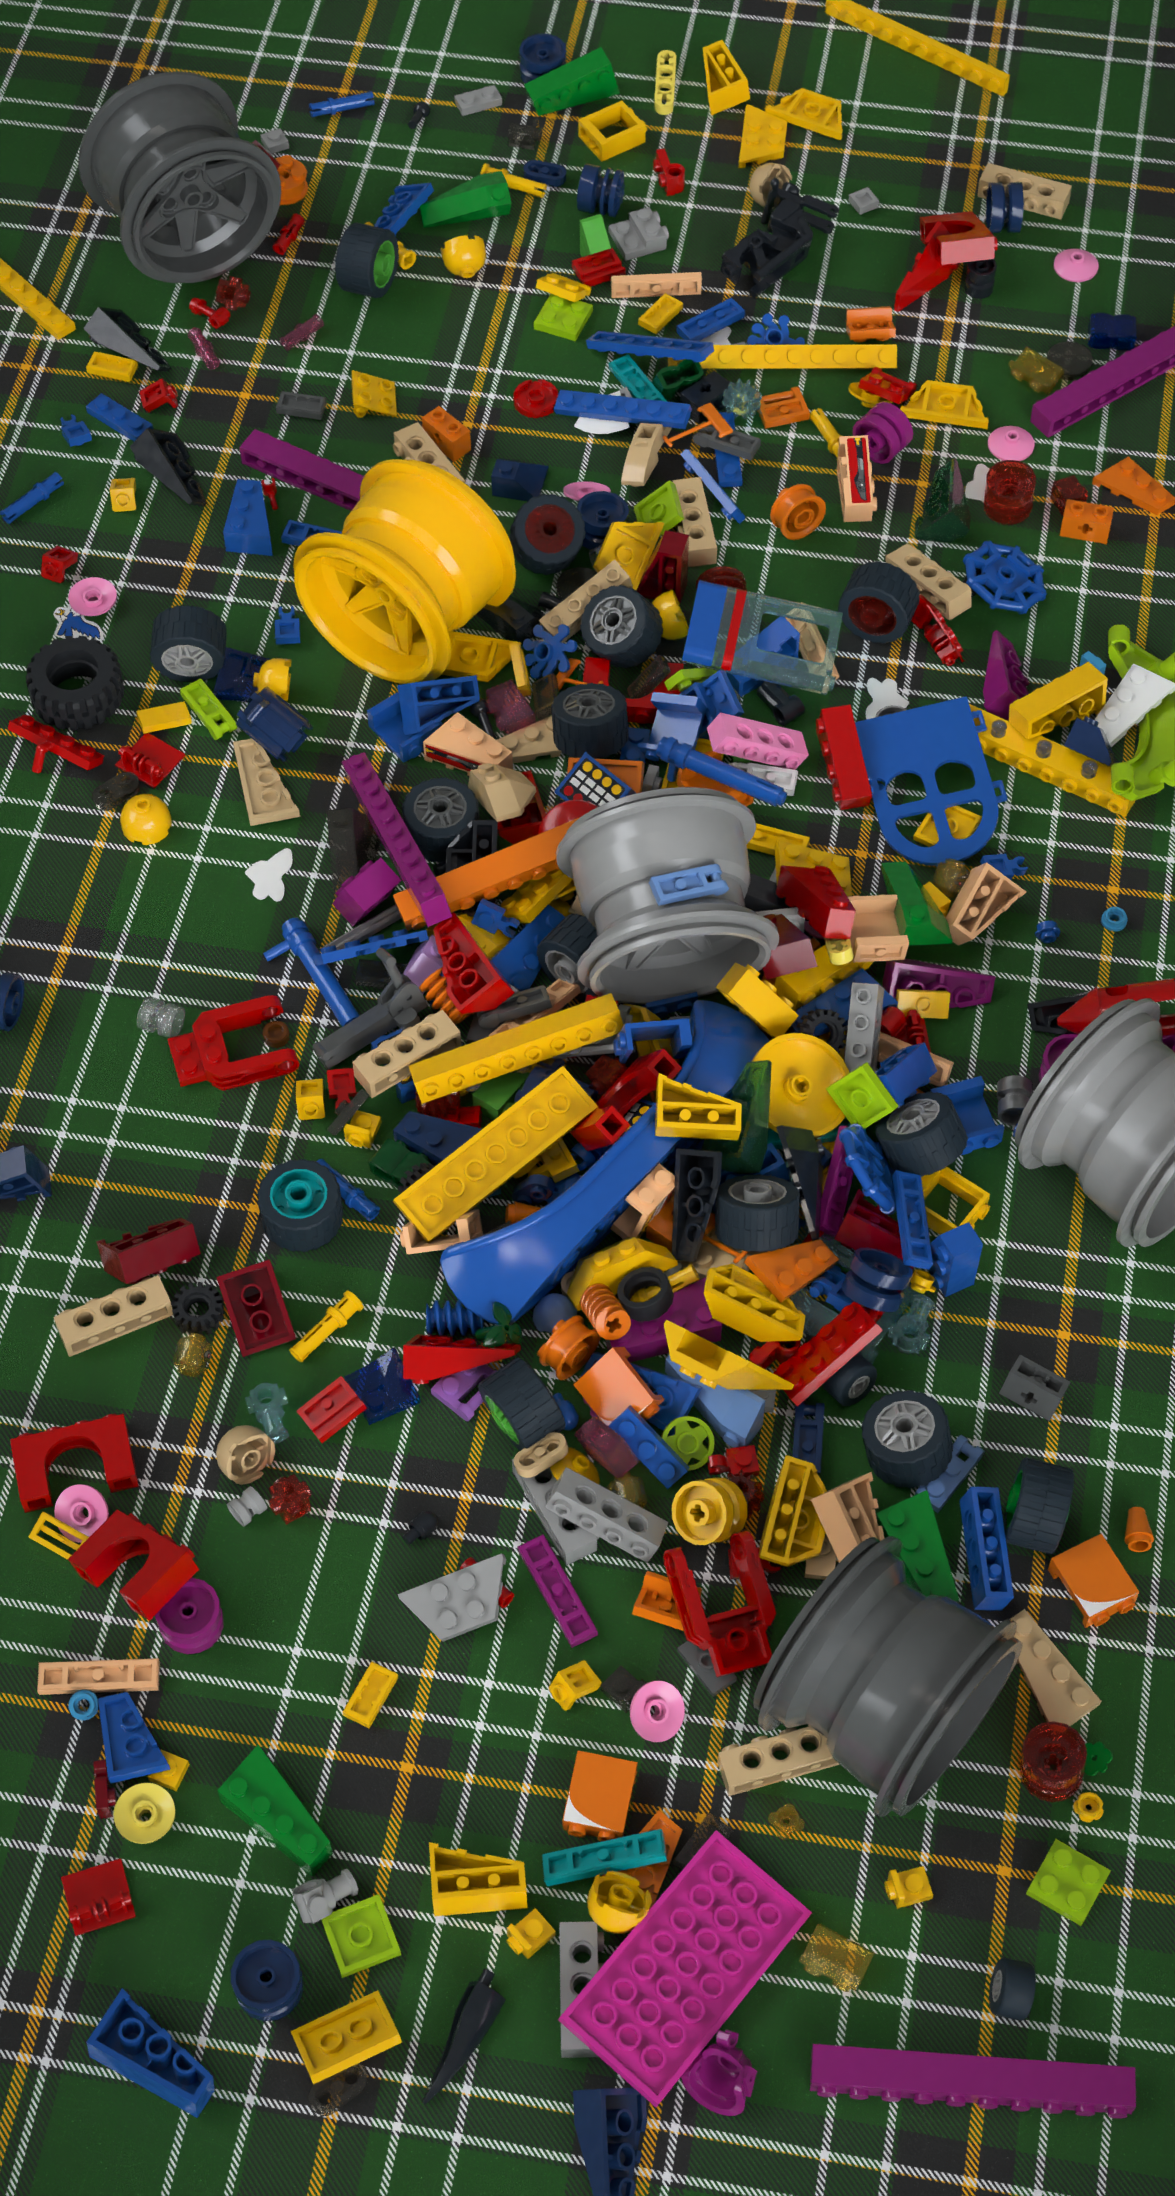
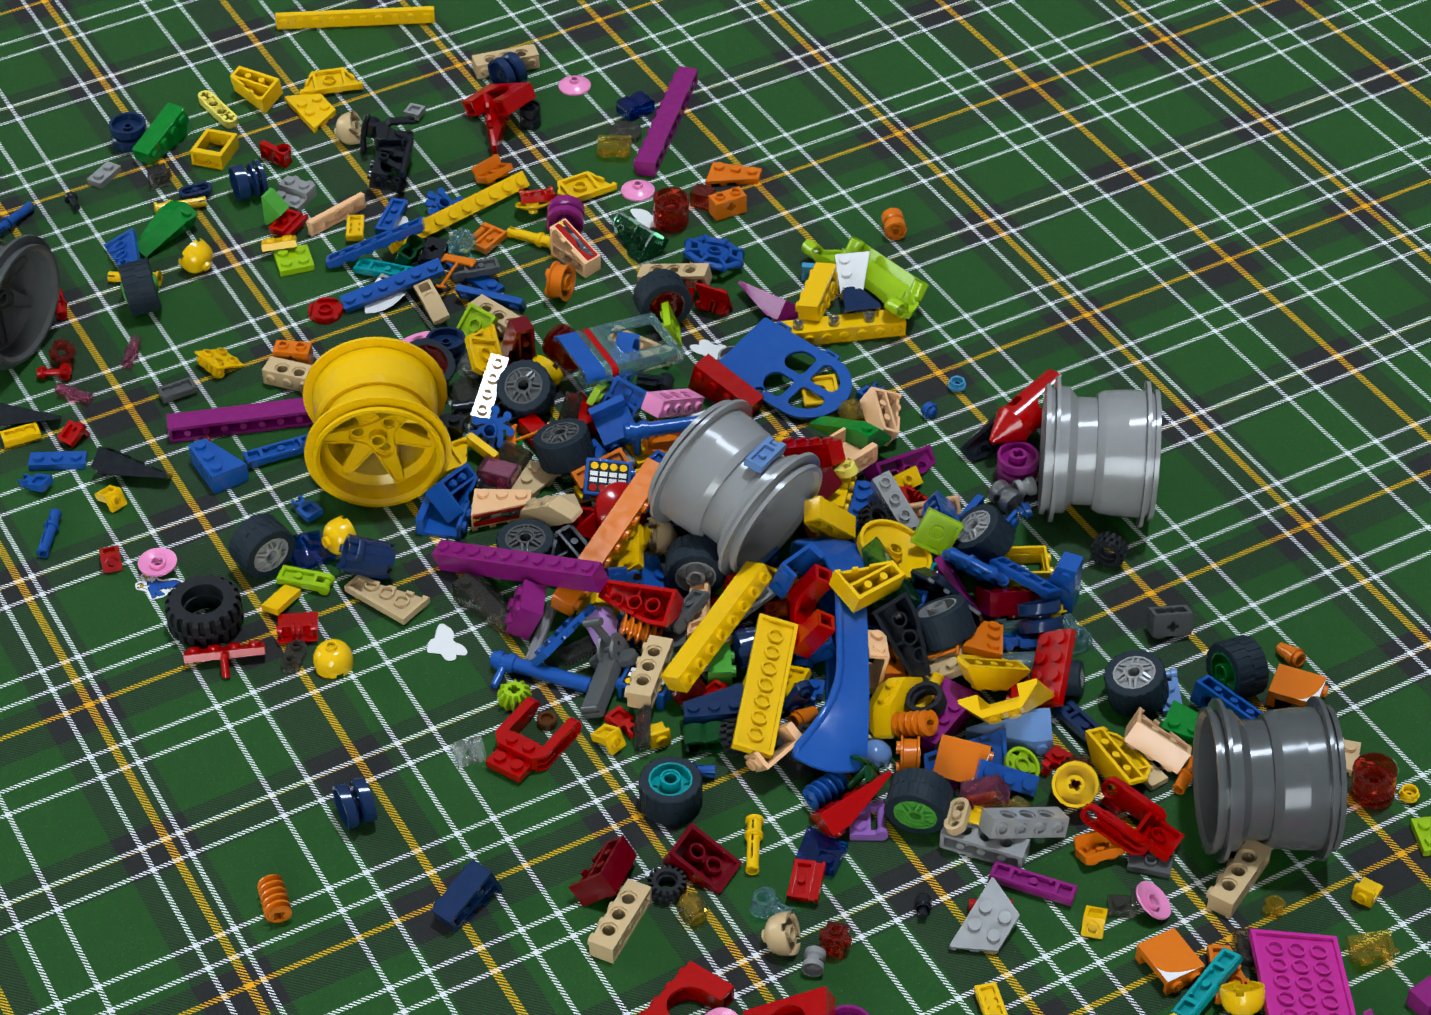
camera: 40 degrees left, 15 degrees down
(268, 981) = (513, 694): none -> lime gear
(860, 643) = (671, 323): none -> lime plate
(1058, 1249) = (1113, 543): none -> black tyre

